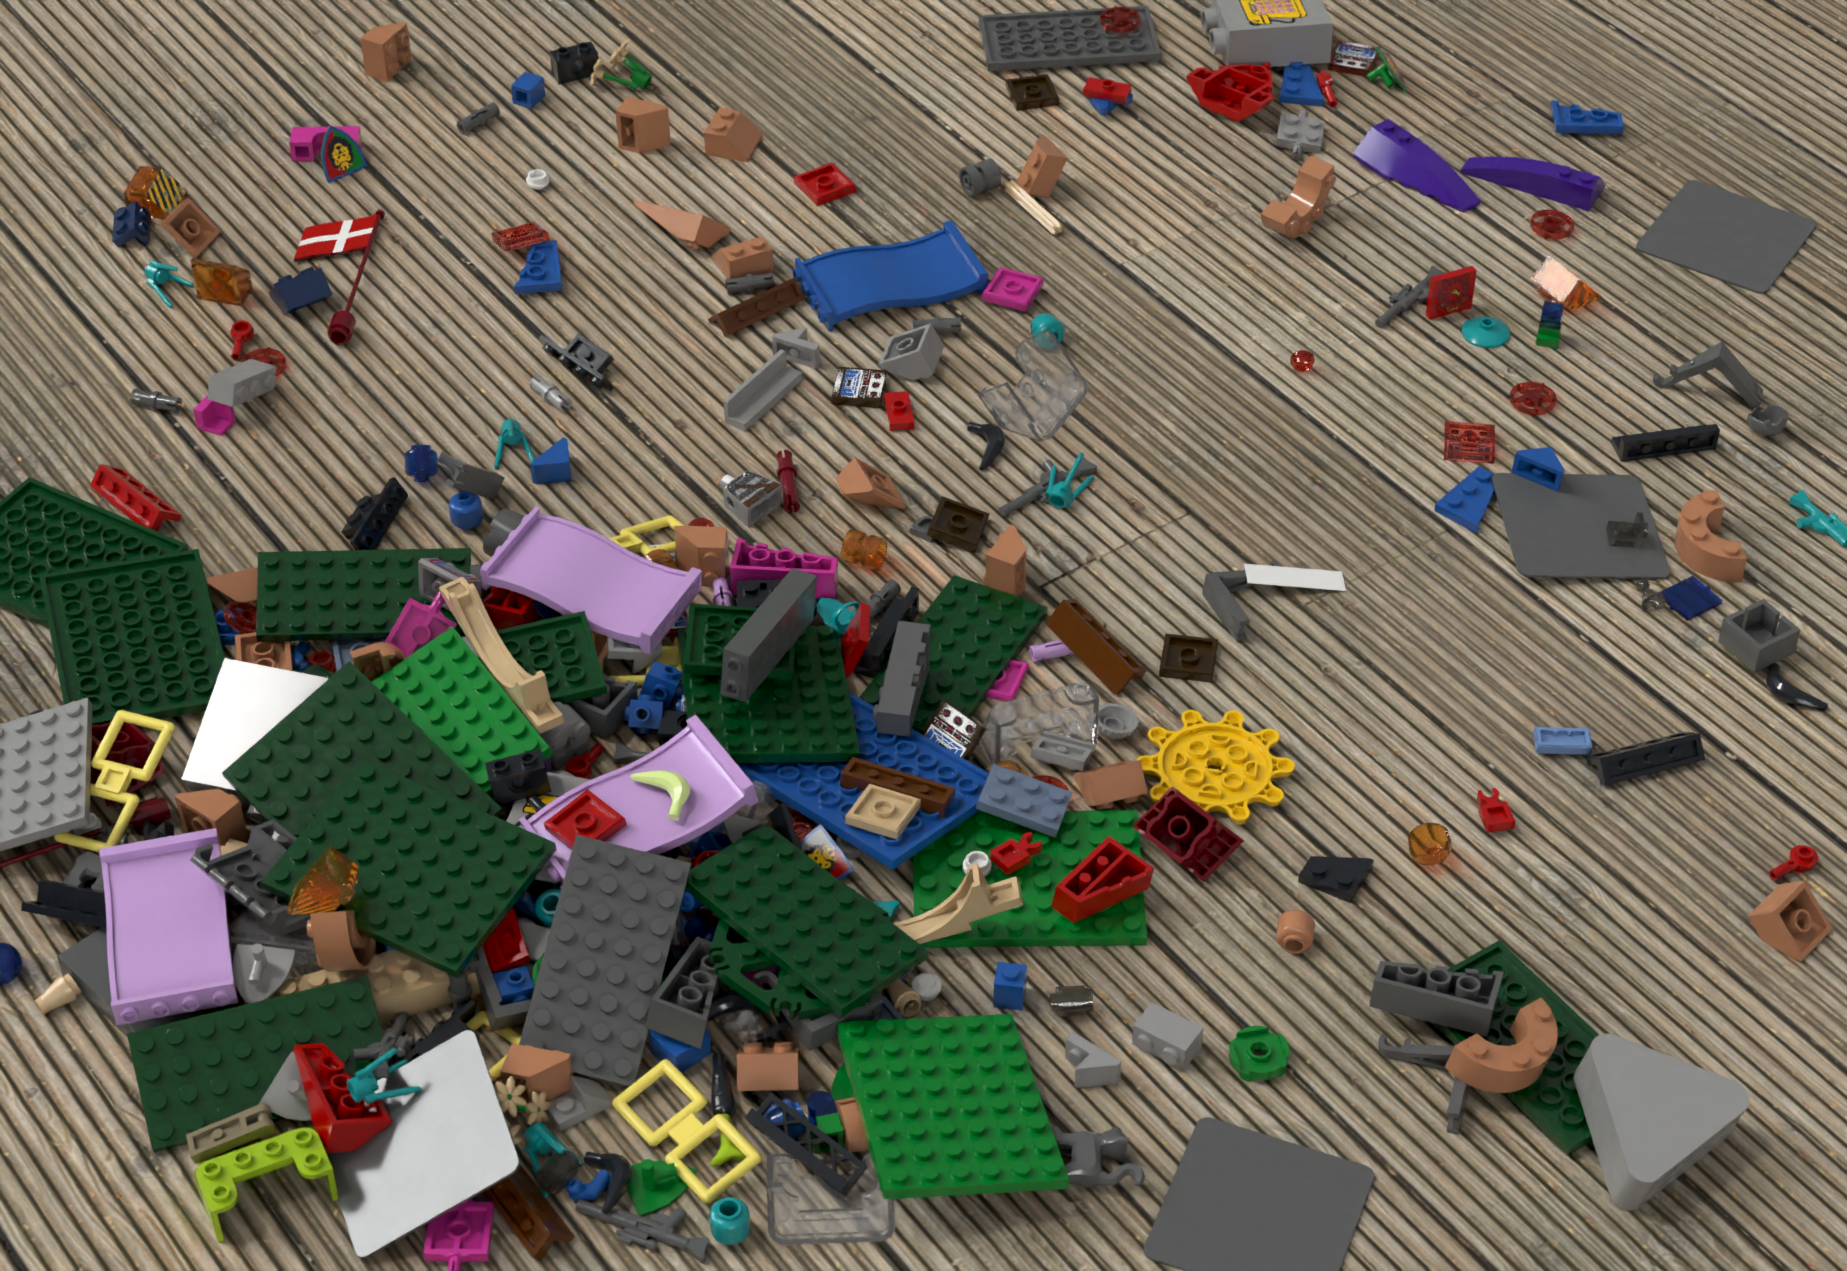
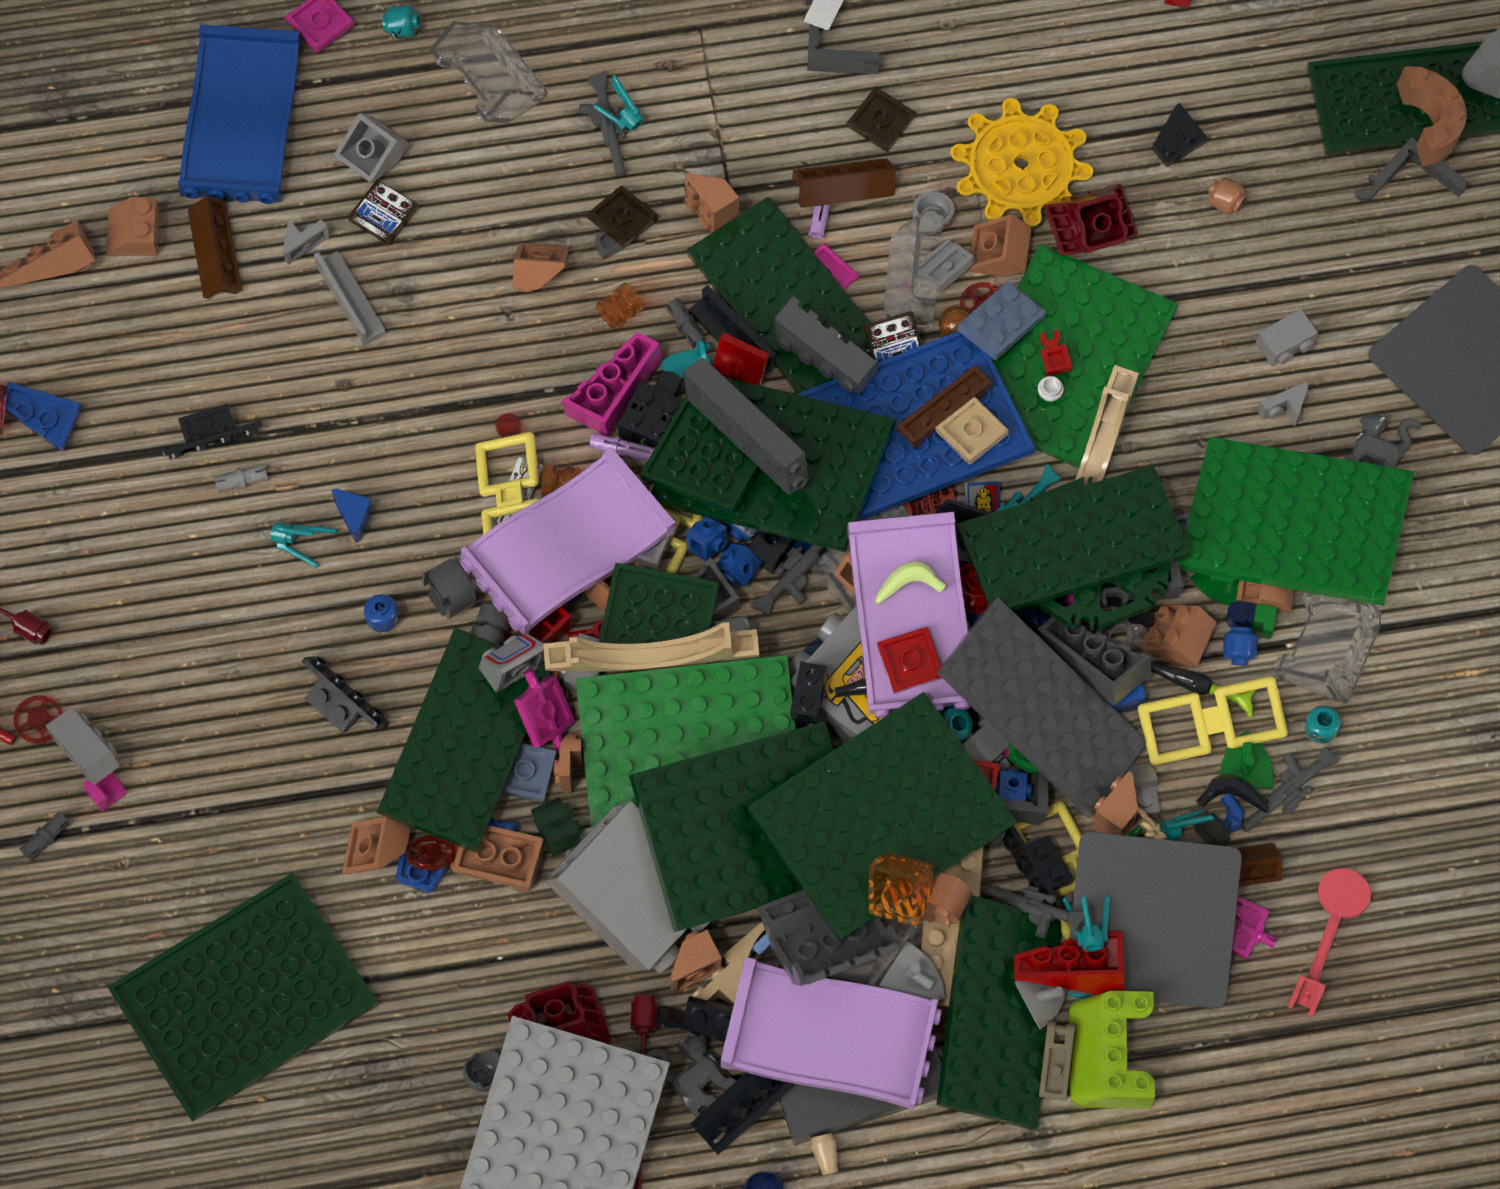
camera: 65 degrees left, 25 degrees up
(117, 777) = (617, 1021): light yellow bar -> none
(132, 497) = (189, 902): red fence -> none
(135, 635) = (410, 958): dark green plate -> none
(324, 659) = (517, 802): clear red plate -> none
(421, 462) = (290, 627): clear blue head -> none
(472, 478) = (338, 584): dark grey hinge -> none
(581, 765) = (768, 645): red plate -> none
(703, 549) = (564, 437): nougat slope -> none
(749, 283) = (174, 238): dark grey pin -> none
(750, 496) = (491, 368): light grey torso -> none
(786, 474) = (484, 327): dark red pin -> none
(796, 1148) = (1285, 648): black fence -> none
(824, 184) = (52, 107): red tile -> none
(899, 411) = (436, 194): red plate -> none
(940, 325) = (336, 108): dark grey pin -> none
(995, 441) = (525, 135): black piece -> none
(1010, 986) = (1183, 424): blue brick -> none
(1071, 1000) = (1218, 387): clear smoke brick -> none
(1101, 880) = (1123, 307): red wedge -> none
(1255, 1067) = (1331, 297): green plate -> none
(1429, 843) = (1189, 55): clear orange hair -> none
(1438, 996) = (1359, 130): dark grey wedge -> none

